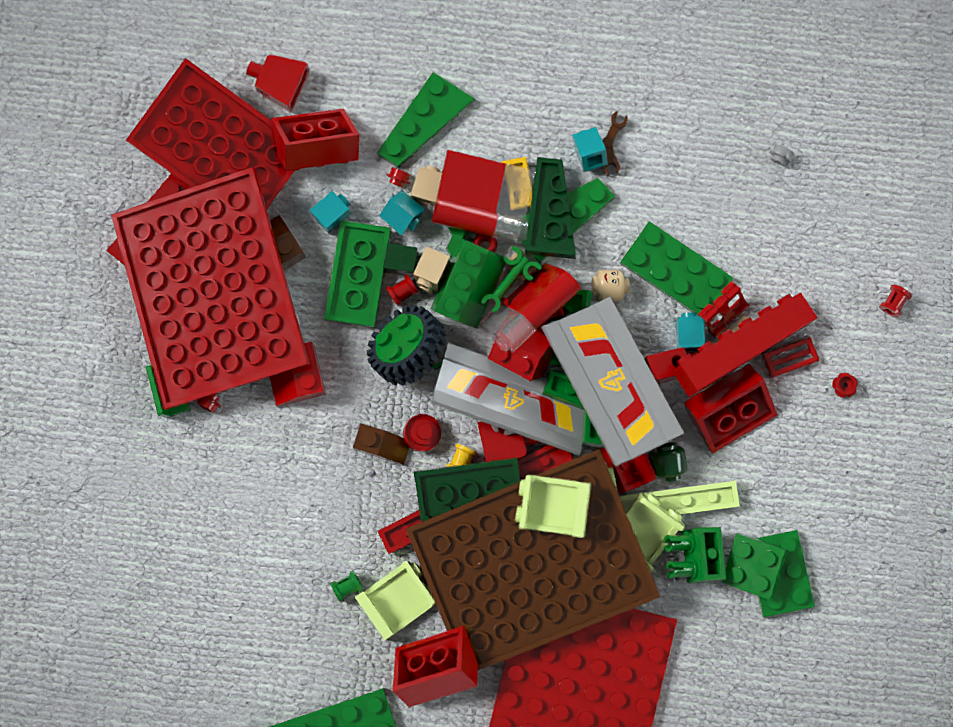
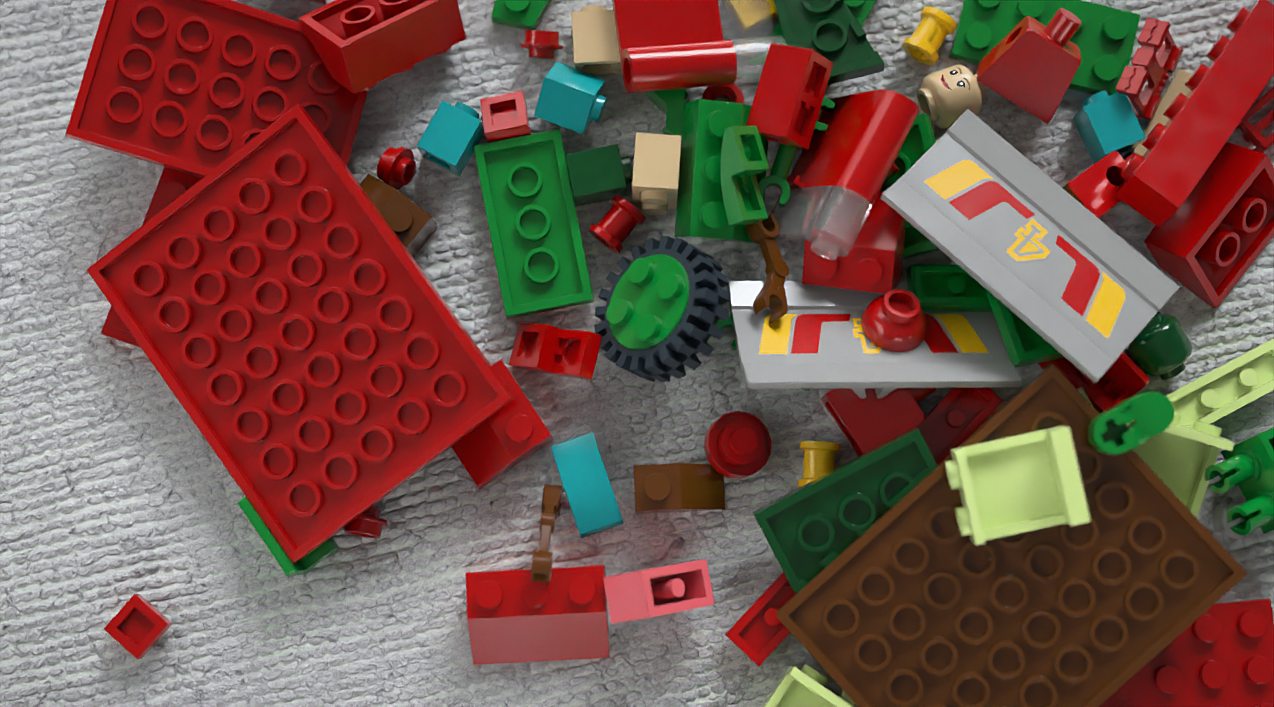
camera: 25 degrees left, 0 degrees up
(70, 413) = (138, 626): none -> red plate
(282, 484) = (537, 620): none -> red slope
(295, 217) = (396, 167): none -> red plate
(310, 430) = (551, 509): none -> reddish brown piece
(333, 425) = (586, 485): none -> teal slope
(343, 347) = (555, 350): none -> red slope
(349, 494) = (658, 591): none -> coral brick
(364, 210) = (505, 116): none -> plate
(475, 282) = (740, 161): none -> green slope
(476, 345) = (776, 269): none -> reddish brown piece
(516, 255) = (790, 94): none -> red hinge
(528, 397) = (895, 321): none -> red piece
(620, 245) = (929, 35): none -> yellow bush
(640, 493) = (1109, 429): none -> green piece
(659, 284) = (1034, 64): none -> red torso

